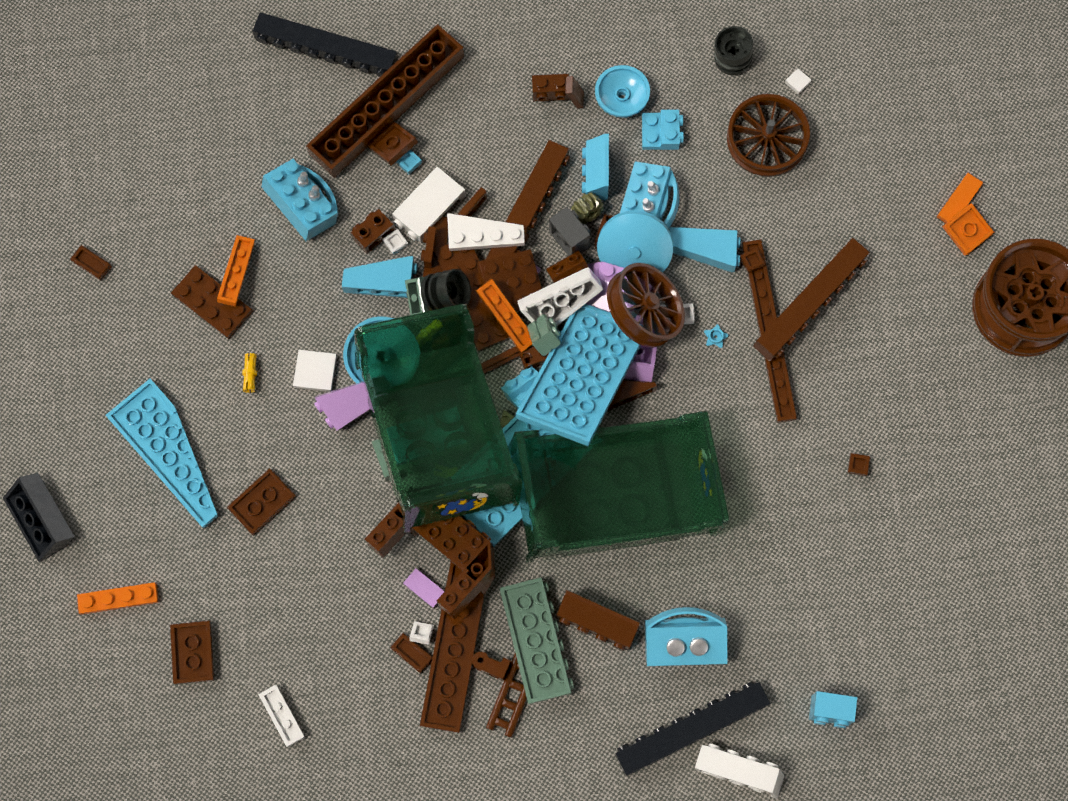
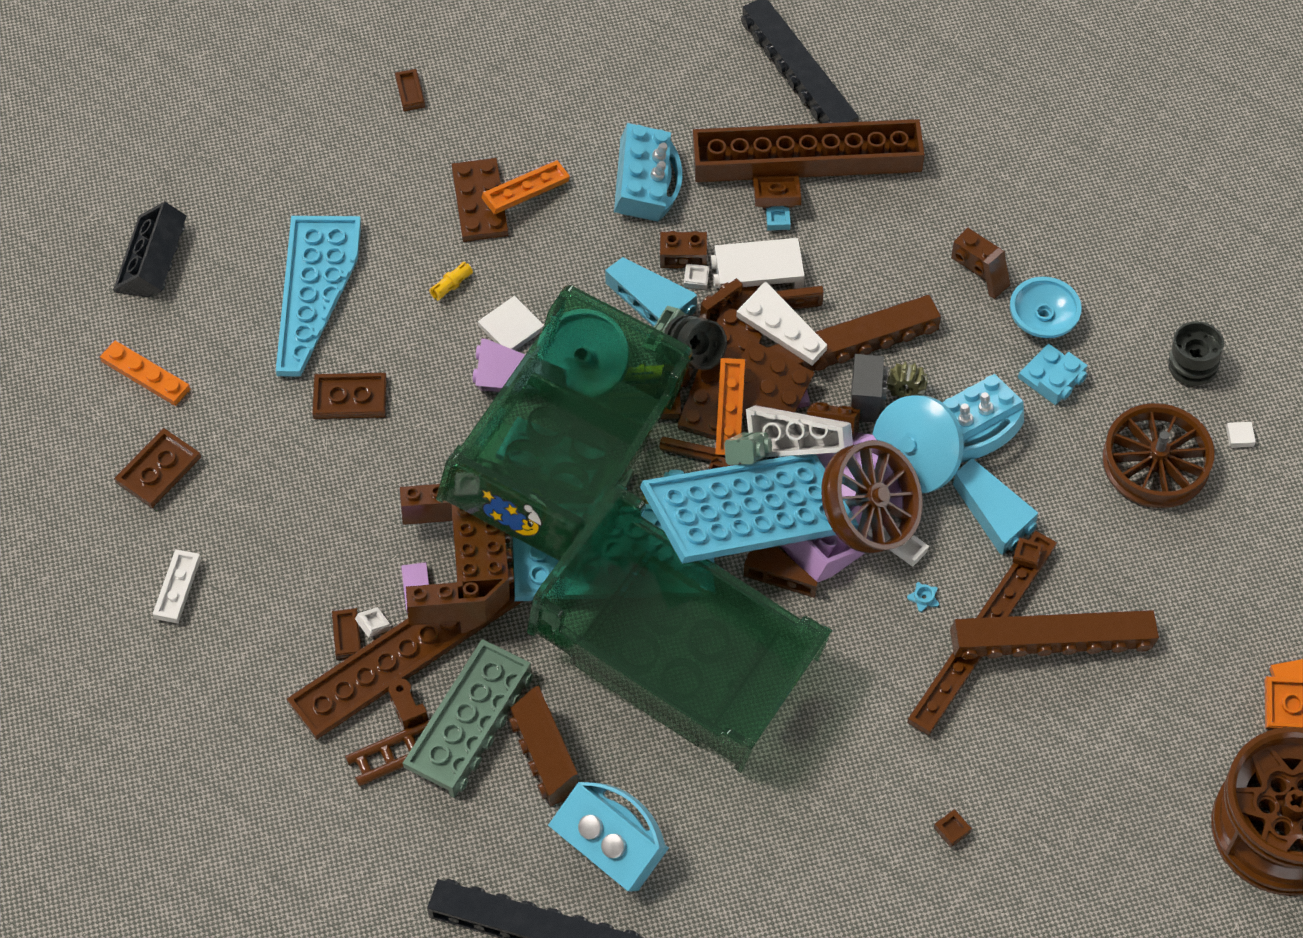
camera: 40 degrees right, 15 degrees down
(596, 166) = (954, 355): medium azure slope -> none

